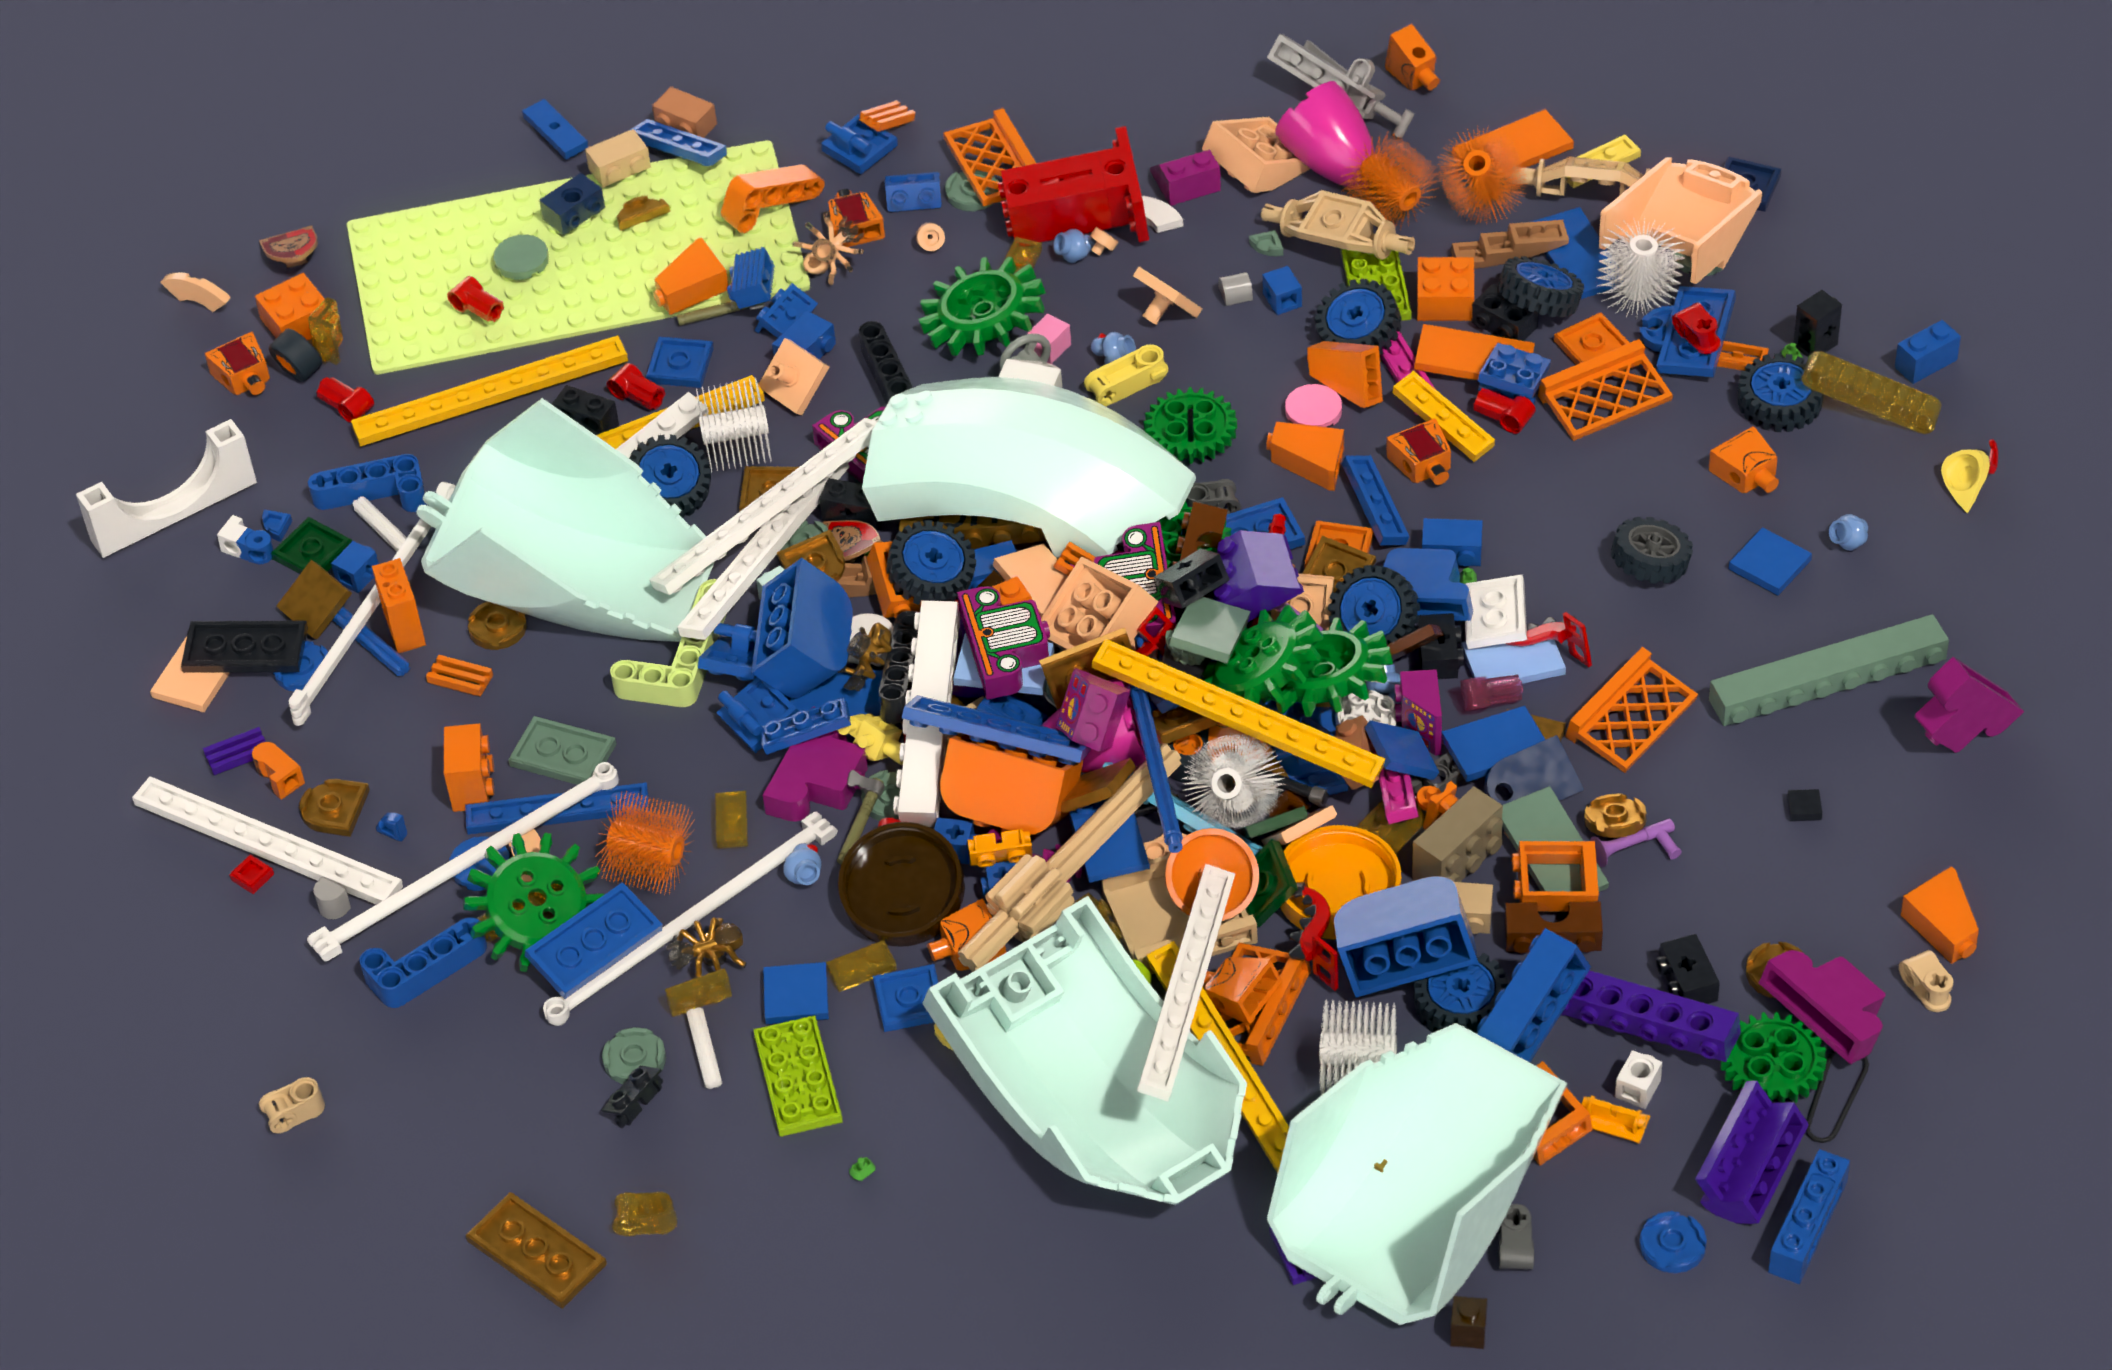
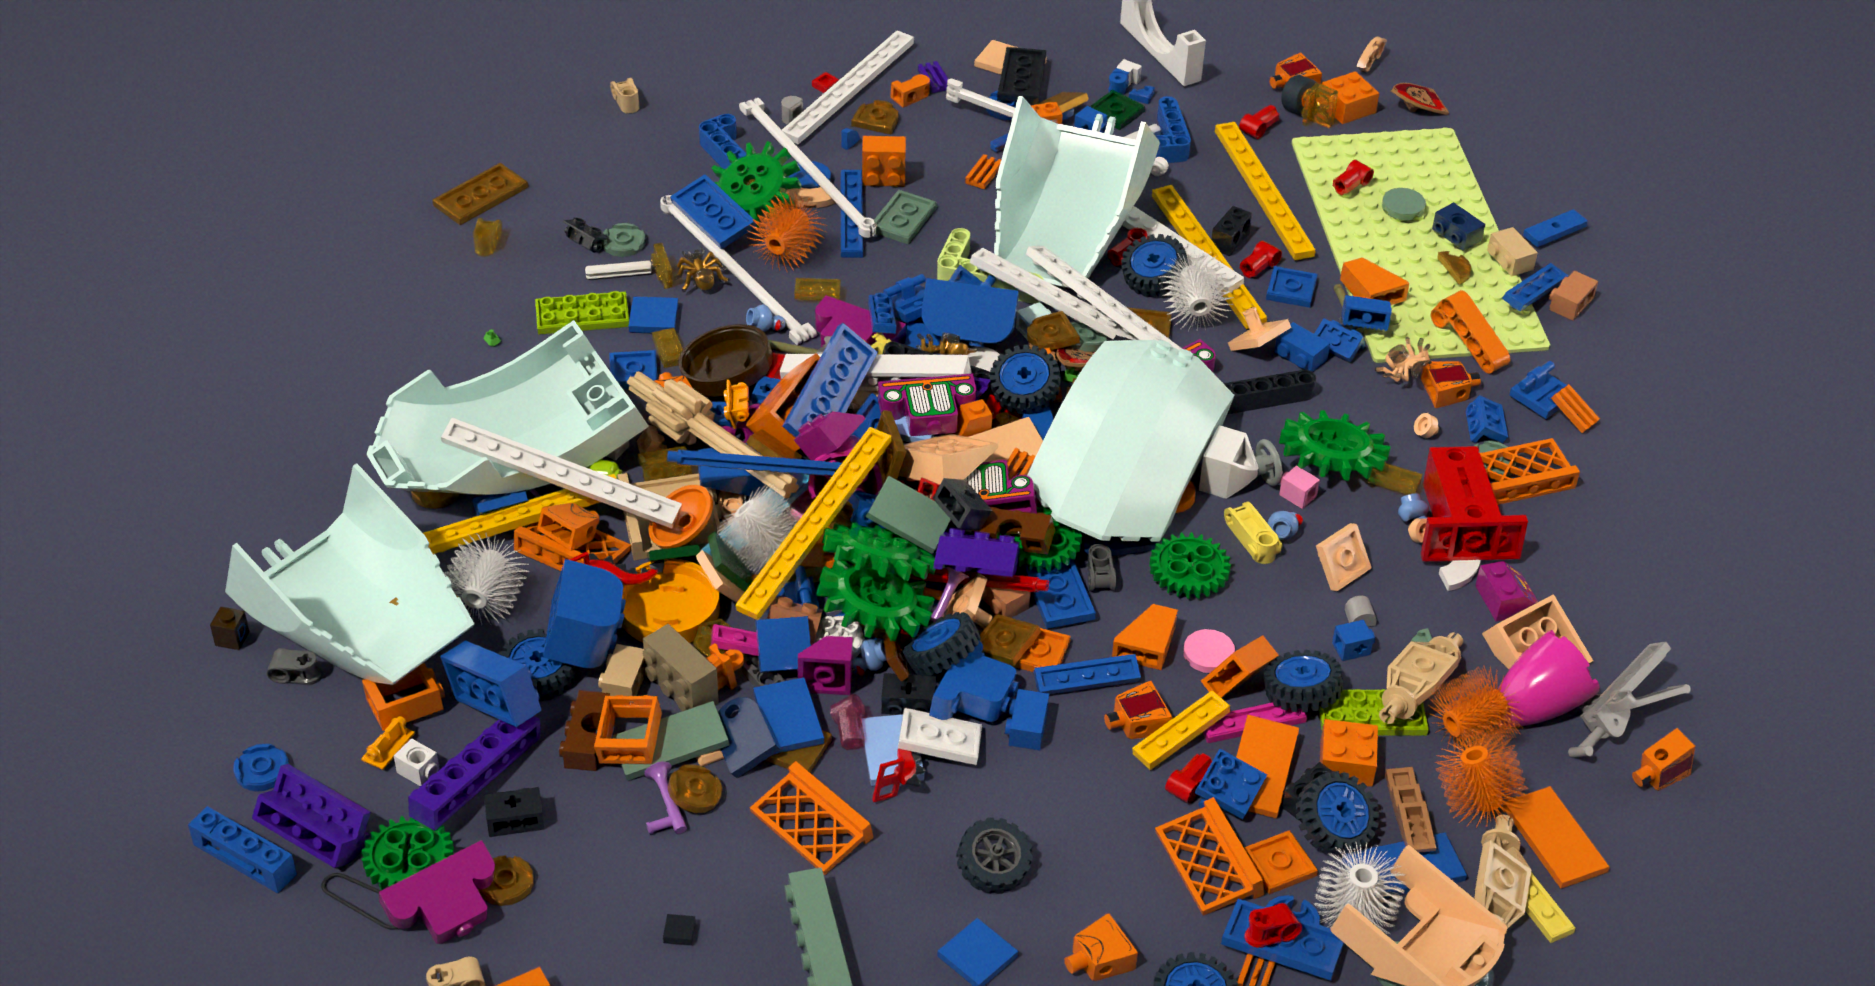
camera: 90 degrees right, 5 degrees down
(1468, 575) = (991, 731): bright green rock -> none

